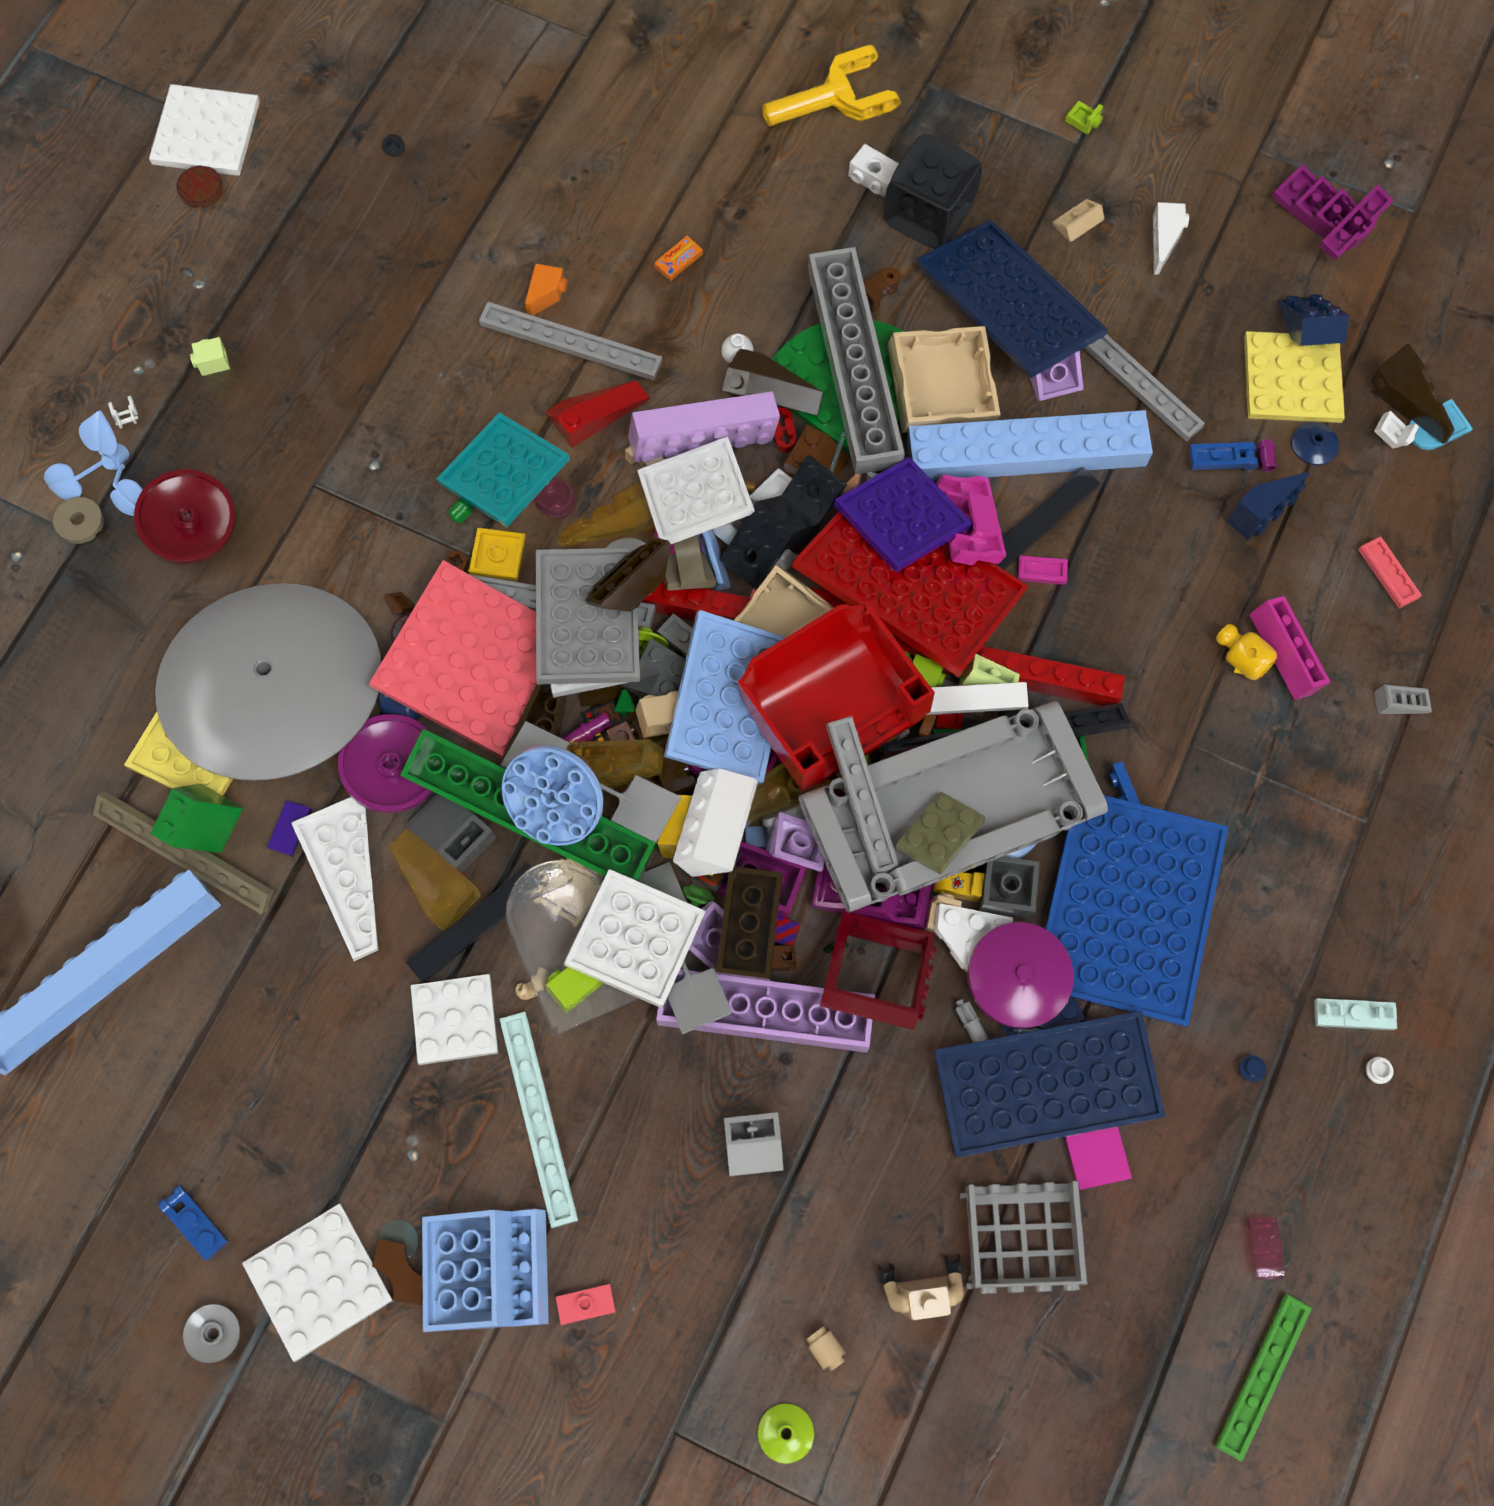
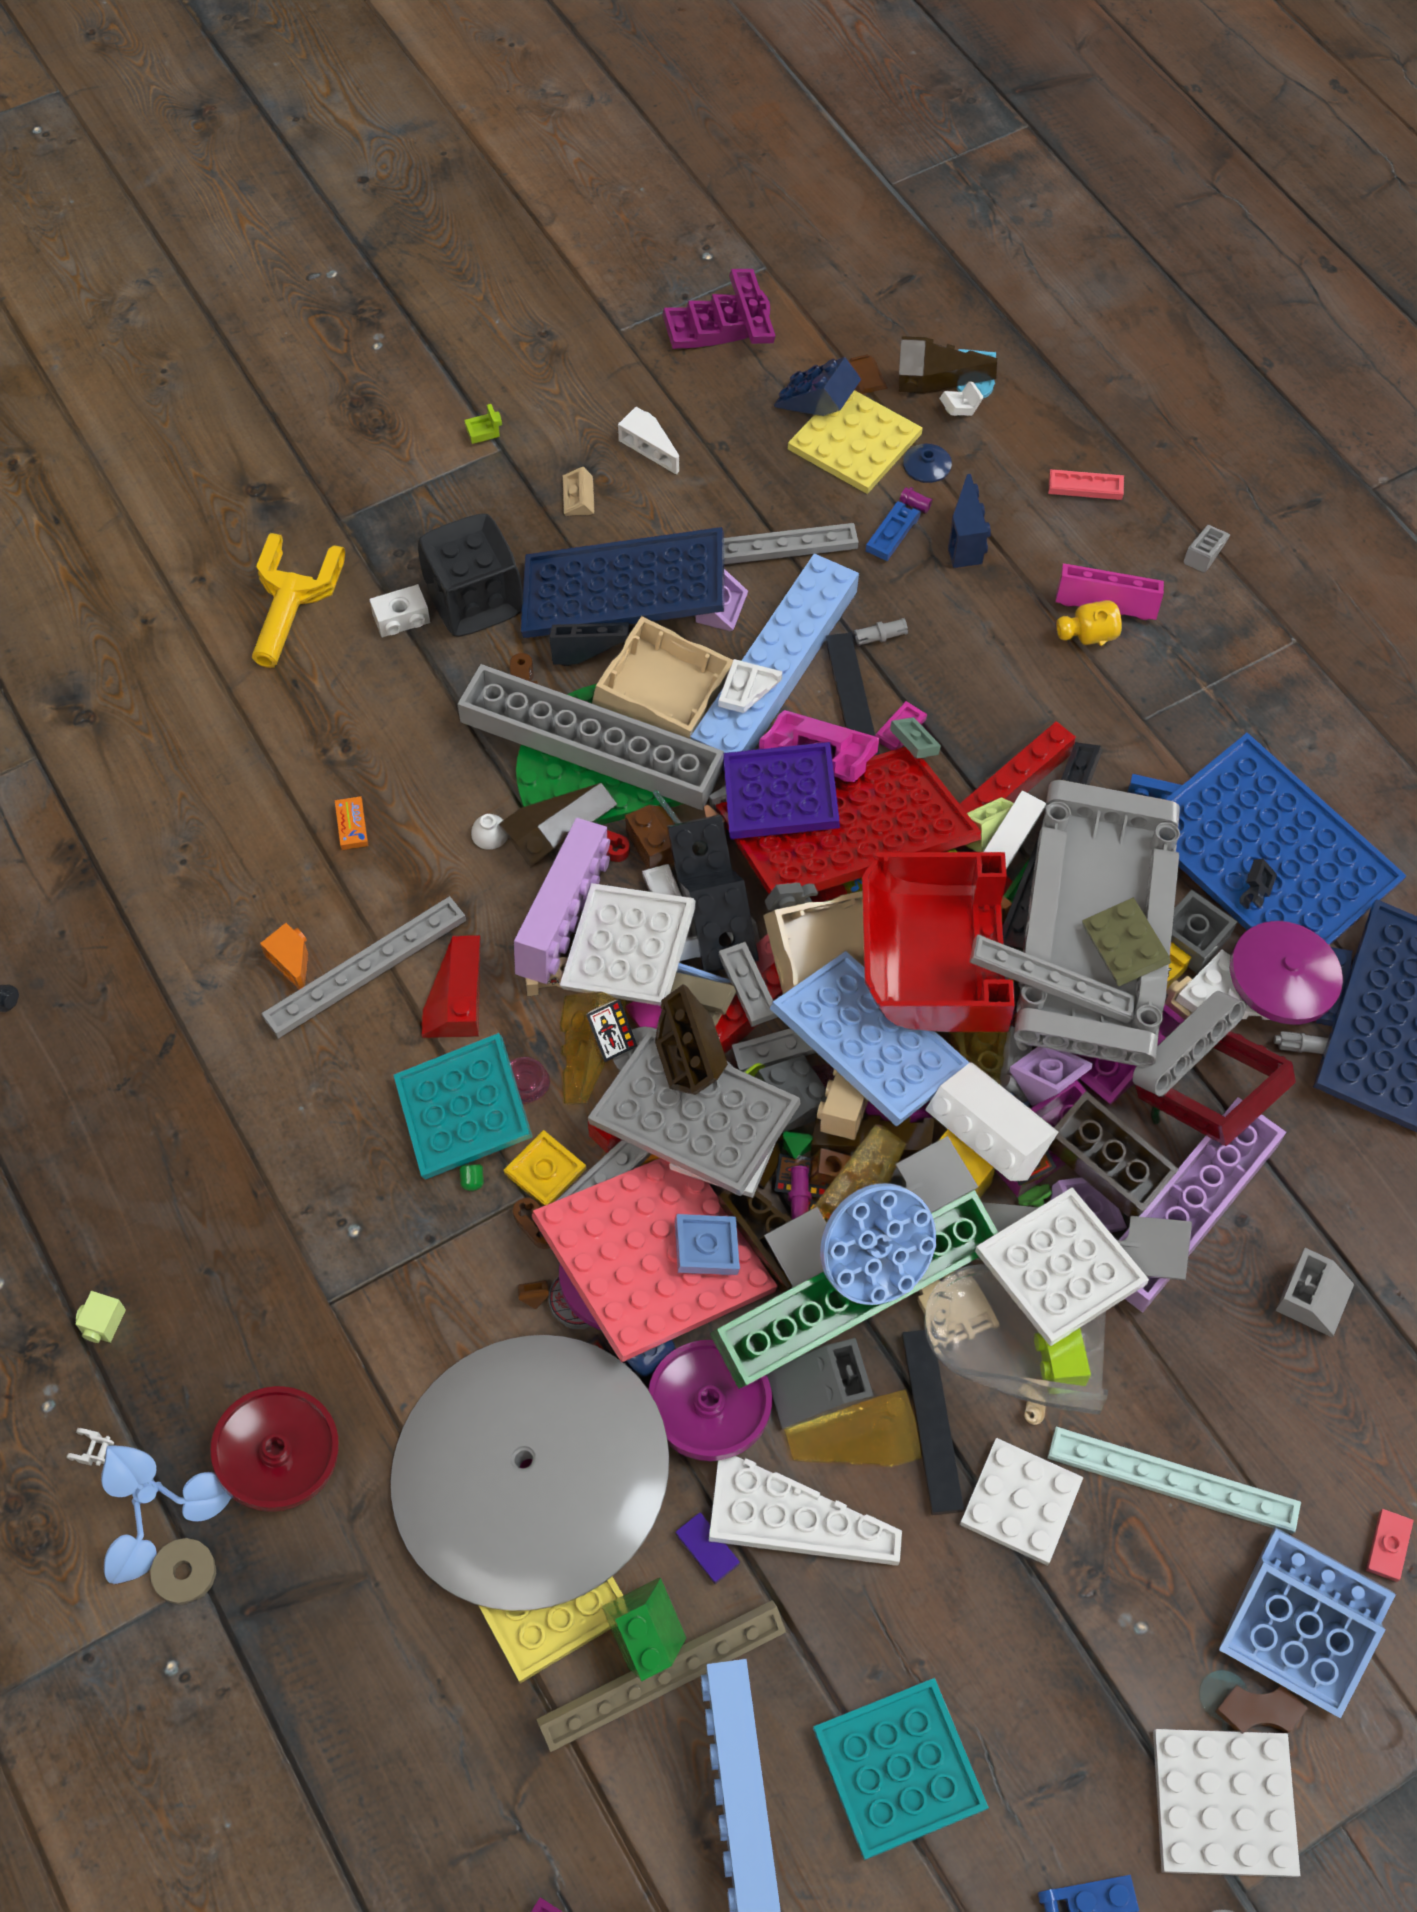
camera: 55 degrees left, 10 degrees down
(210, 1044) = (900, 1769): none -> teal plate
(495, 688) = (706, 1244): none -> medium blue plate
(622, 524) = (611, 1030): none -> piece
(721, 587) = (748, 983): none -> light grey plate
(802, 570) = (789, 894): none -> dark grey plate
(895, 932) = (1190, 1042): none -> light grey beam
(936, 302) = (579, 642): none -> black slope
(977, 434) = (747, 685): none -> white wing
(1031, 582) = (915, 737): none -> sand green plate
(1088, 910) = (1261, 881): none -> black plate
(1118, 504) = (881, 631): none -> light grey pin
(1366, 347) = (869, 373): none -> reddish brown piece

